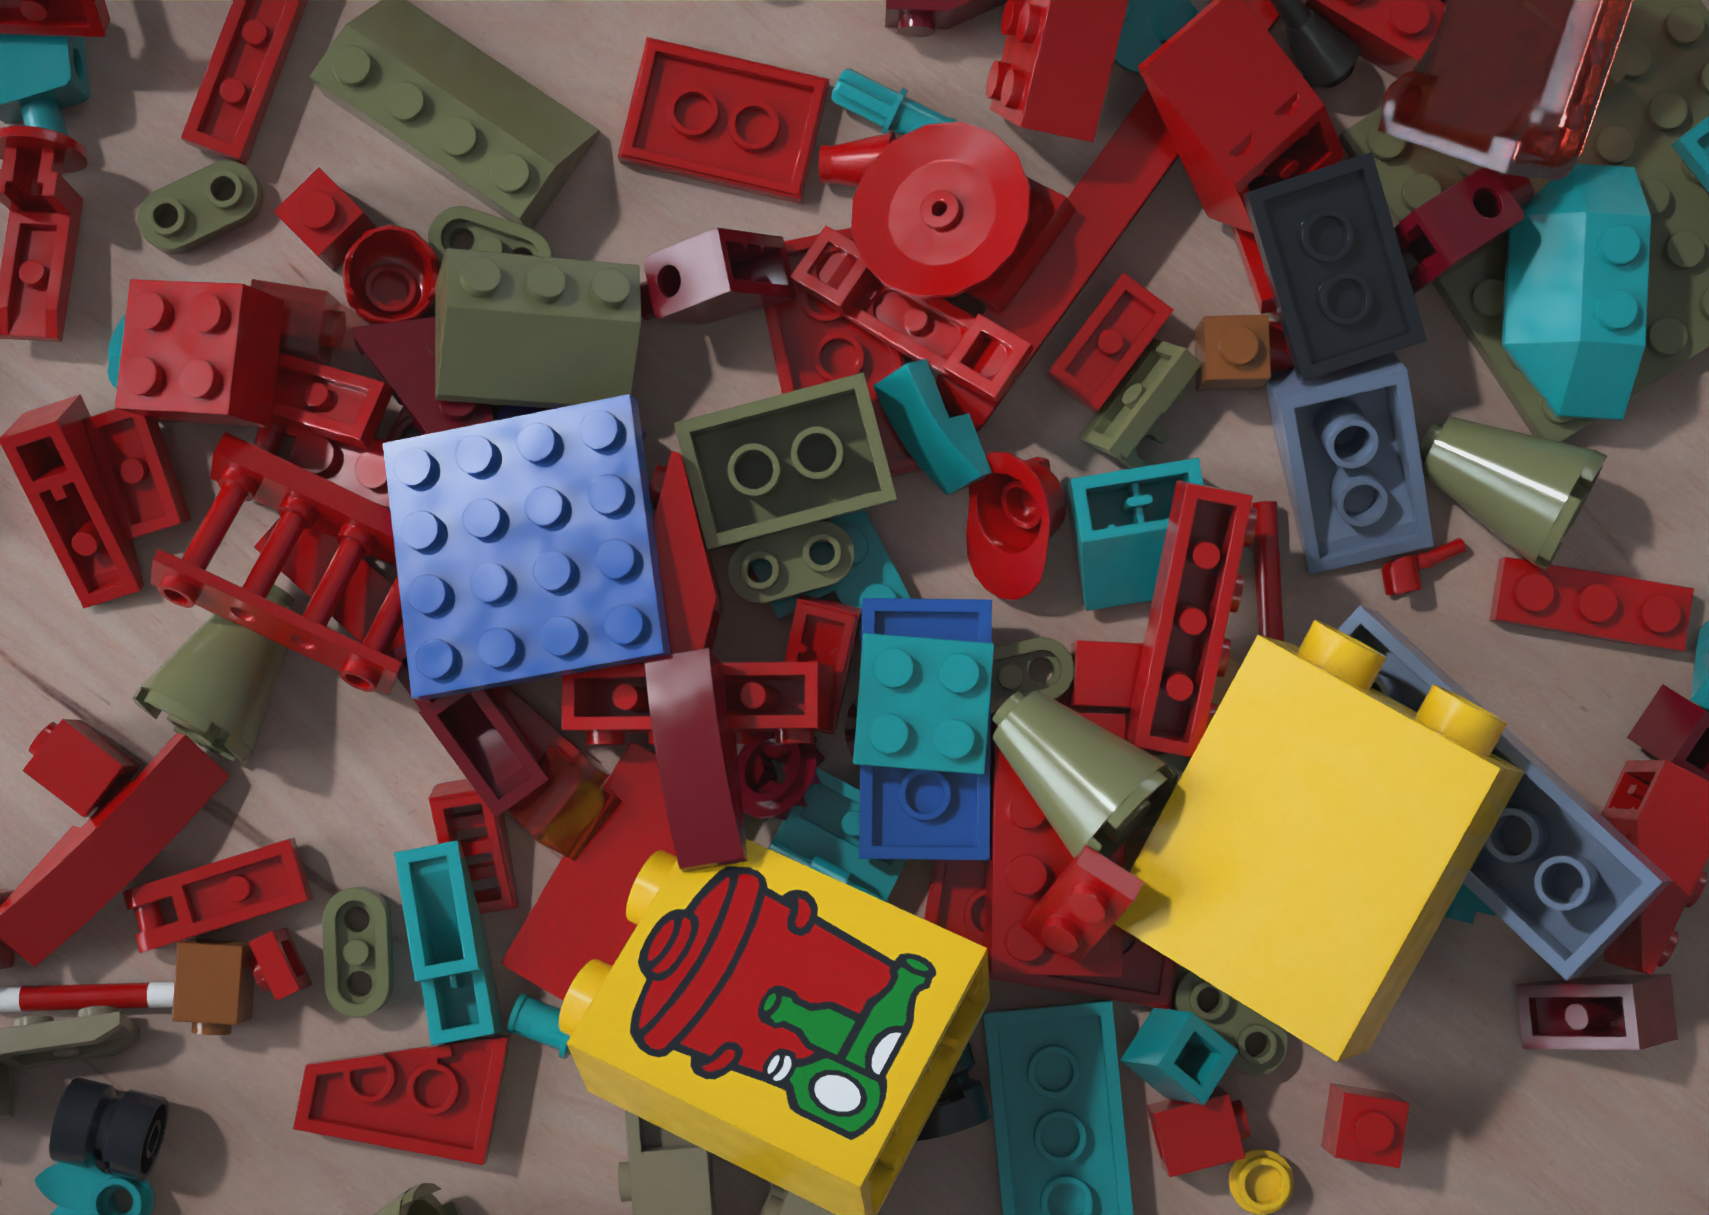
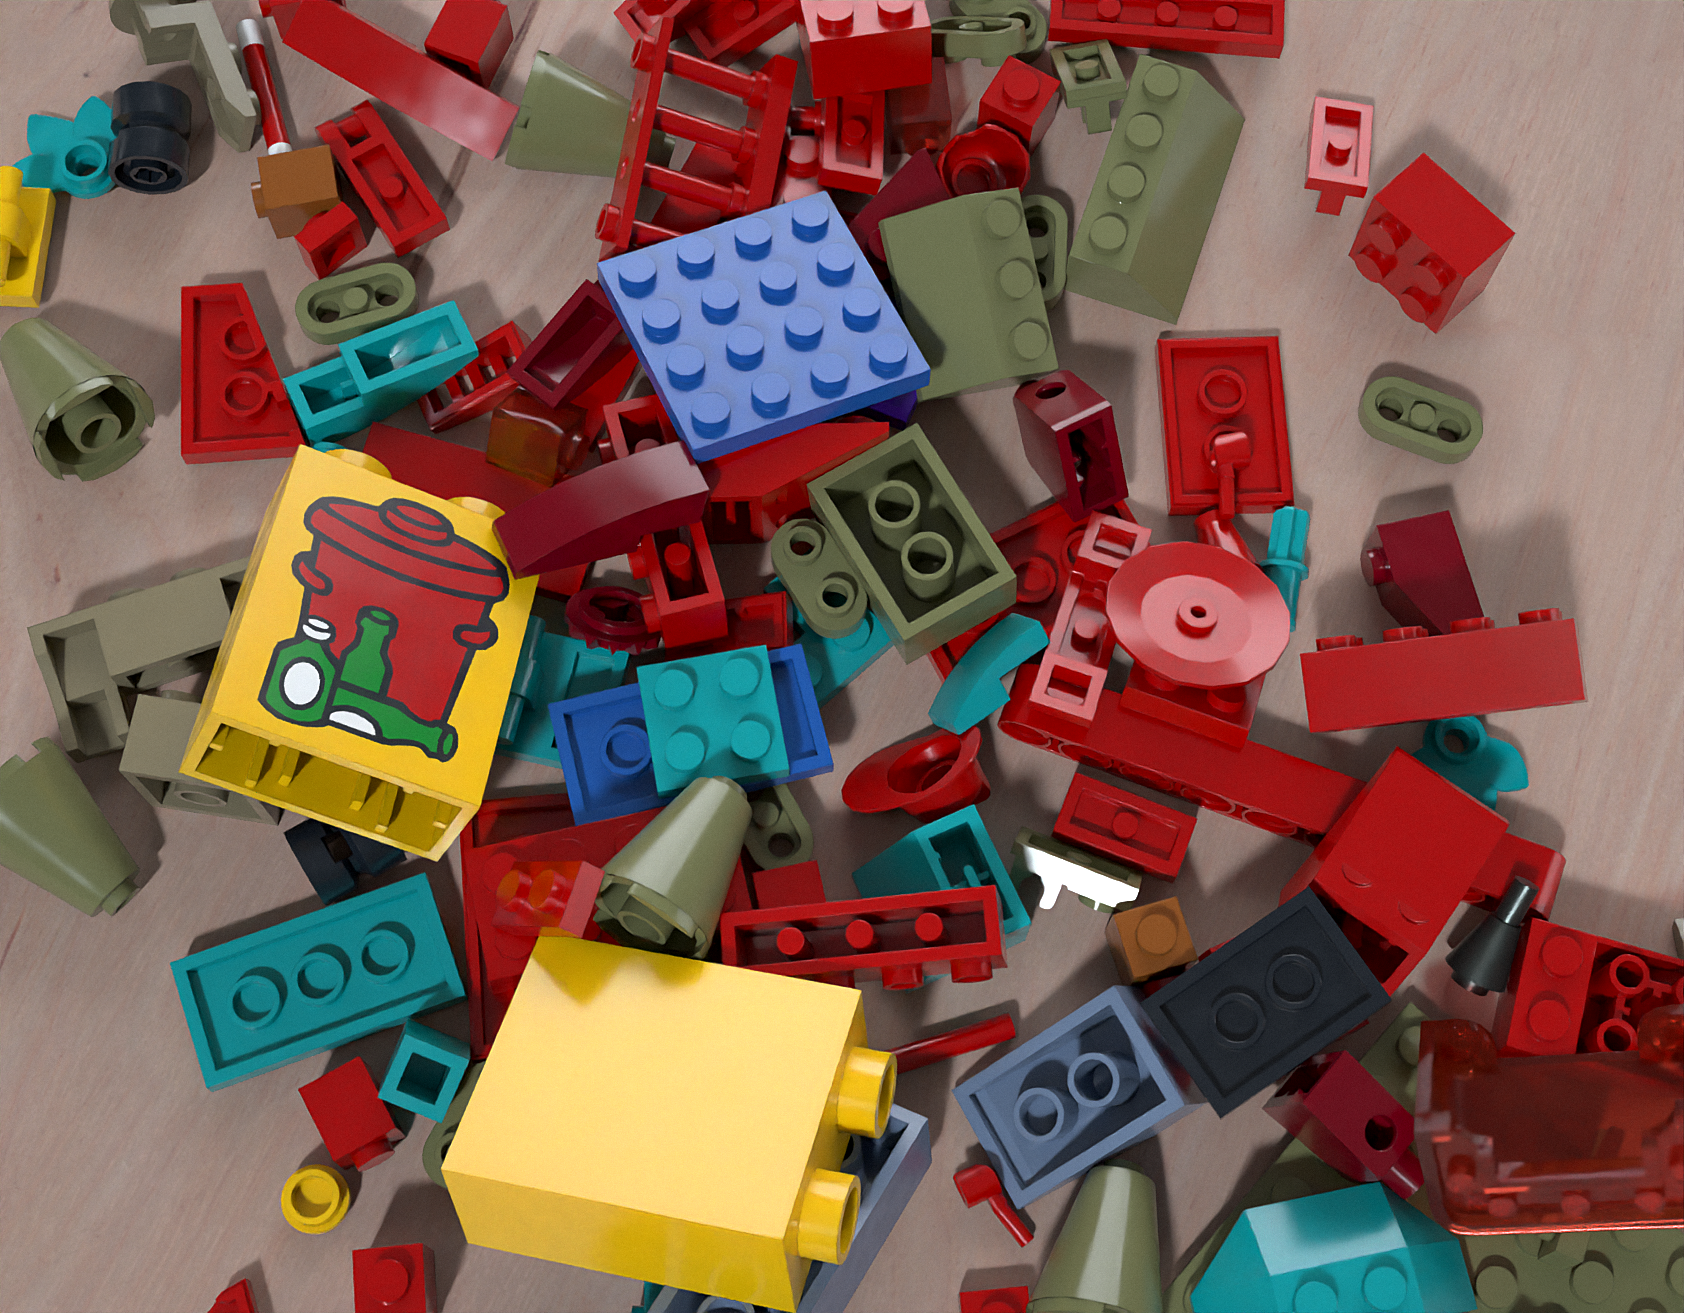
camera: 70 degrees right, 15 degrees down
(233, 236) = (977, 37): none -> olive plate
(314, 136) = (1089, 81): none -> olive plate
(768, 131) = (1229, 453): none -> red hand

